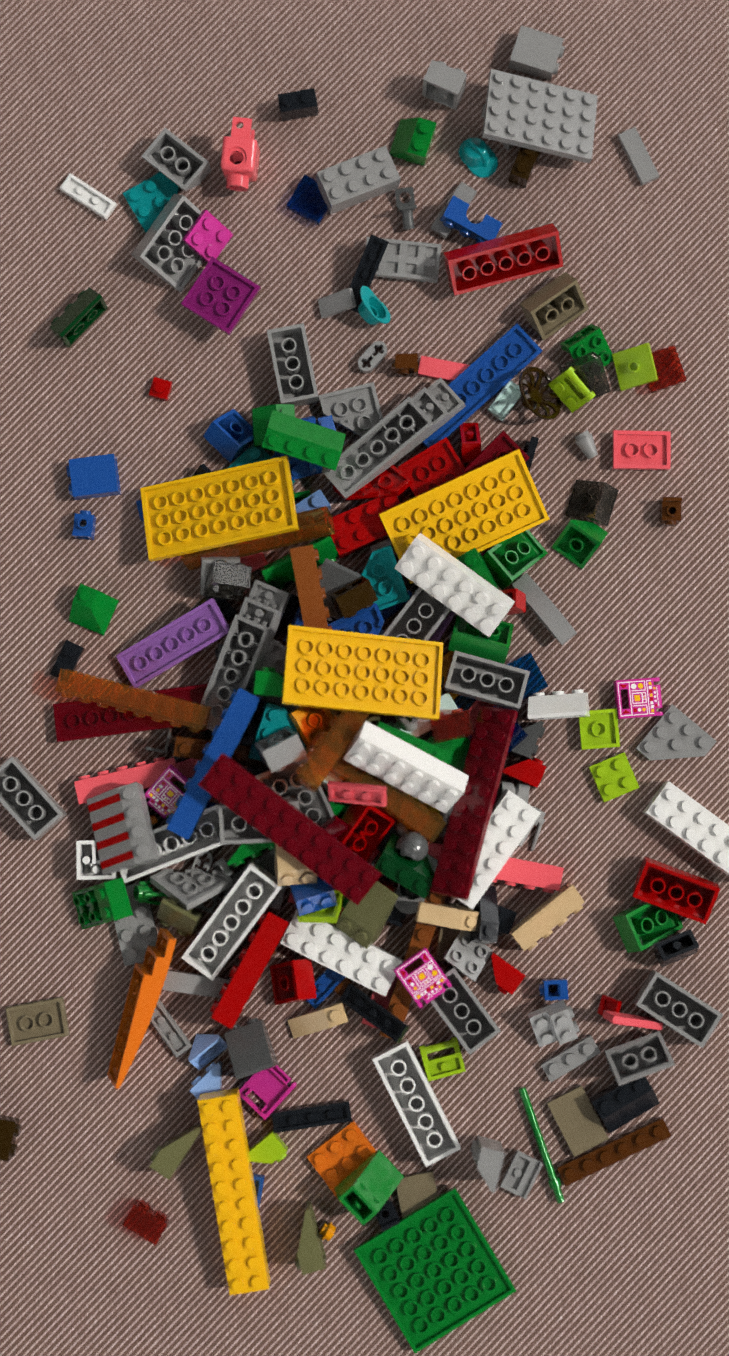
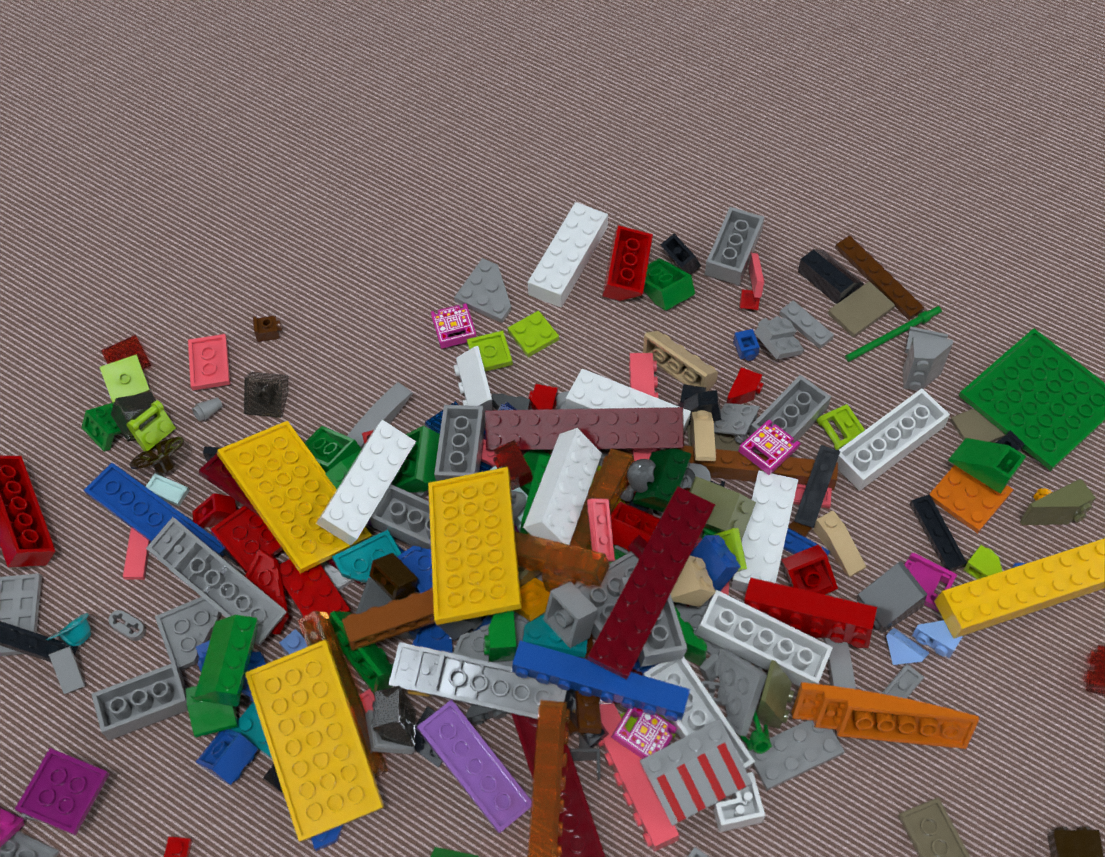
camera: 100 degrees left, 25 degrees down
(102, 903) = (784, 786): green slope -> none
(170, 1155) = (1017, 650): olive slope -> none
(405, 364) = (133, 588): reddish brown brick -> none
(554, 305) = (63, 460): dark tan slope -> none
(579, 541) = (307, 395): green slope -> none
(639, 1058) = (790, 263): light grey slope -> none

